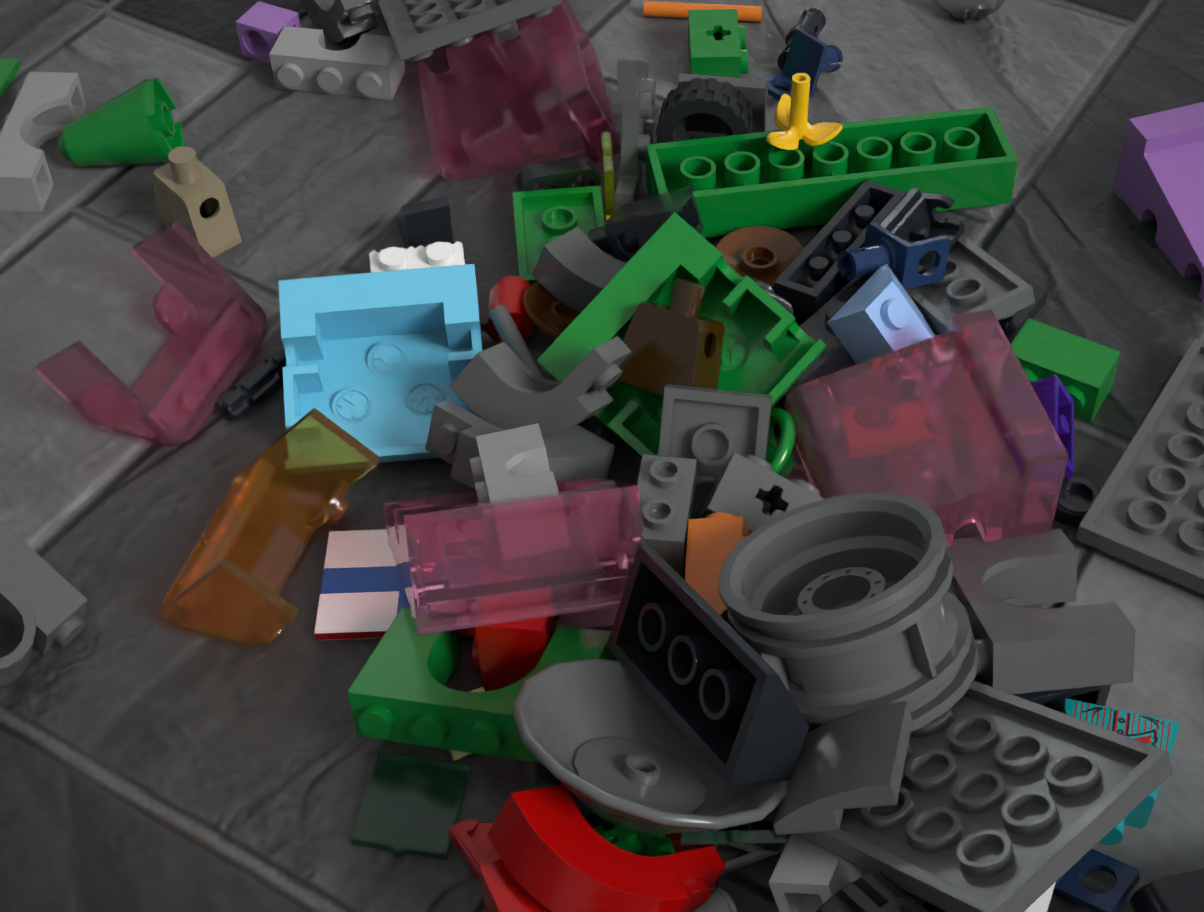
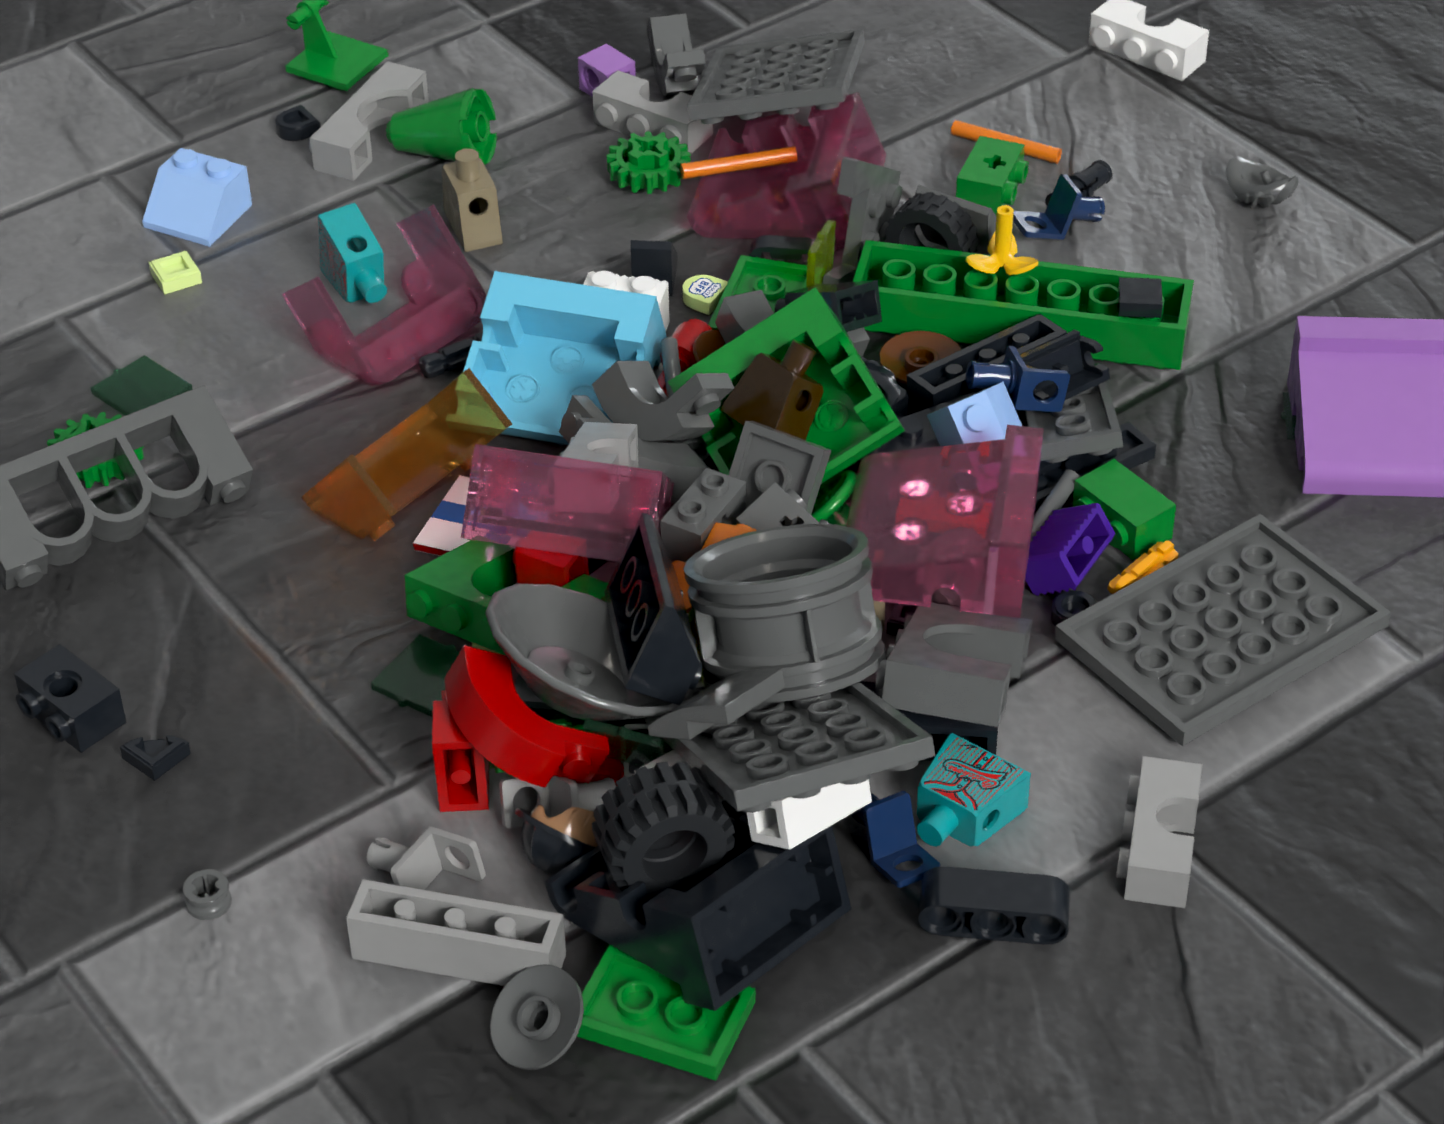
camera: 20 degrees right, 5 degrees down
(88, 300) = (354, 270): none -> teal torso
(360, 115) = (647, 162): none -> green gear
(459, 94) = (738, 162): none -> orange bar
(490, 243) = (703, 292): none -> yellowish green tile
(958, 137) = (1140, 297): none -> black tile
(1116, 432) = (1156, 557): none -> light orange axle

